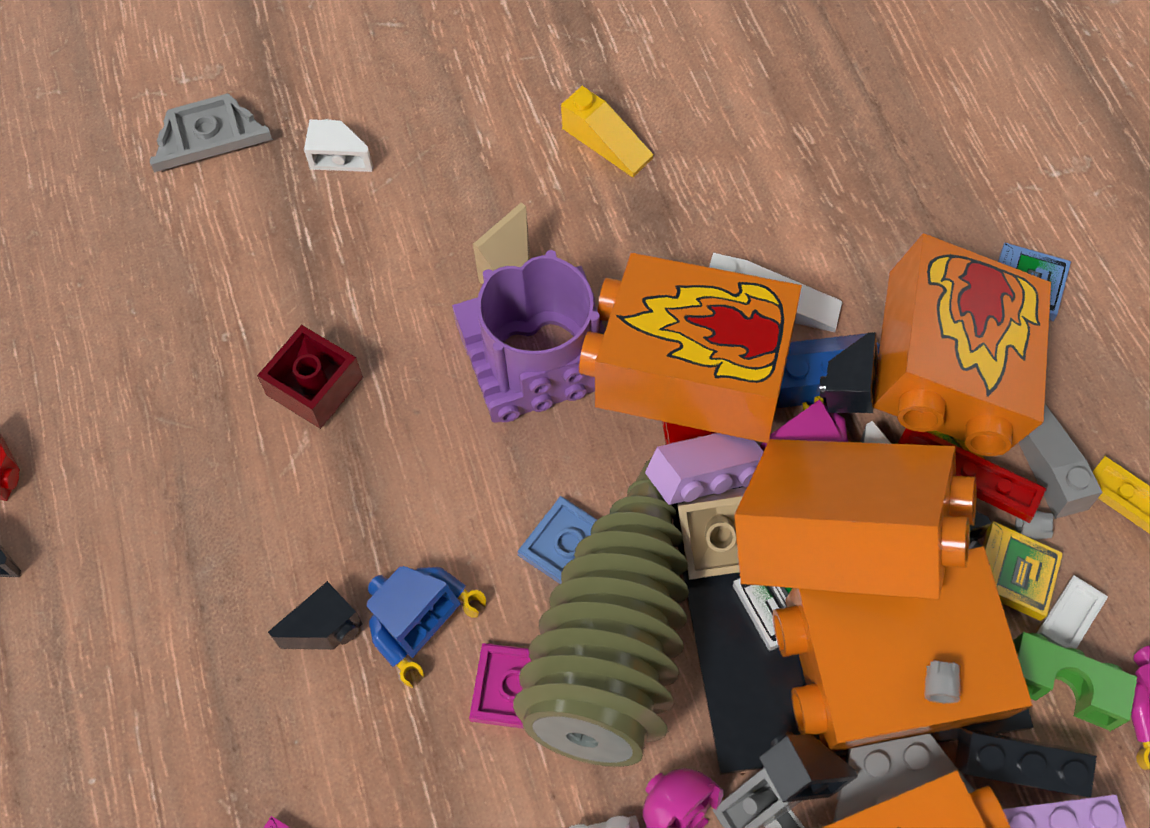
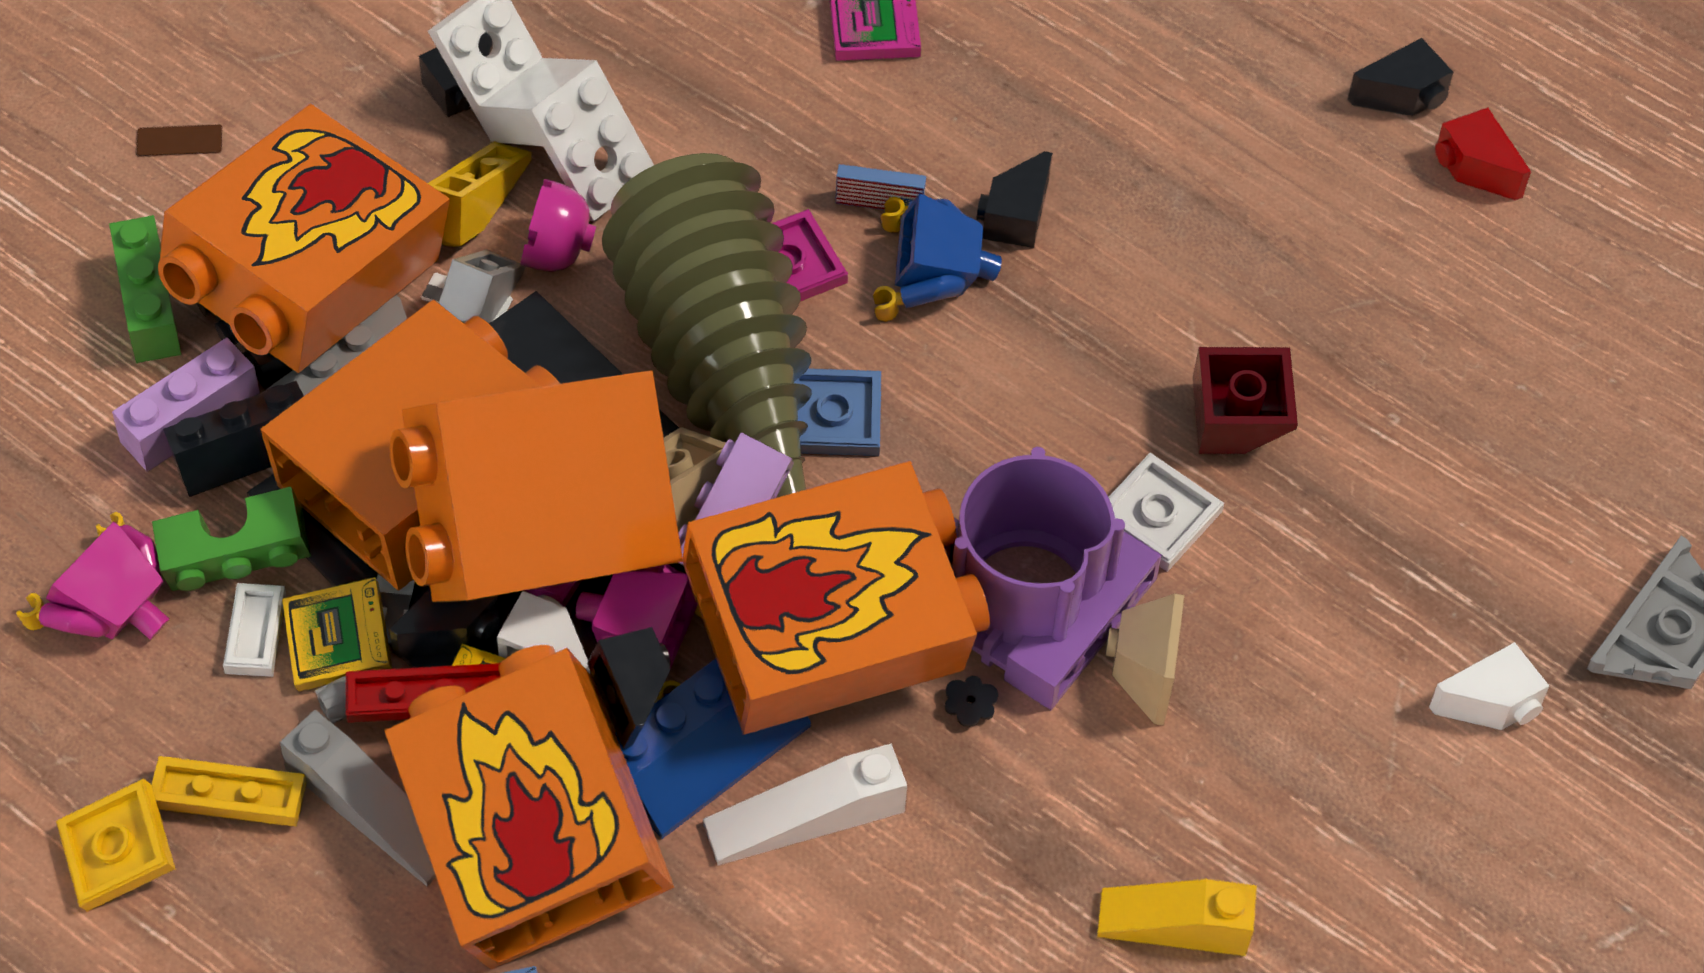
camera: 140 degrees right, 5 degrees down
(406, 696) = (874, 186): none -> tile
(420, 357) = (1164, 509): none -> white tile
(805, 768) = (461, 287): black slope -> none
(942, 682) = (359, 382): light grey hose -> none

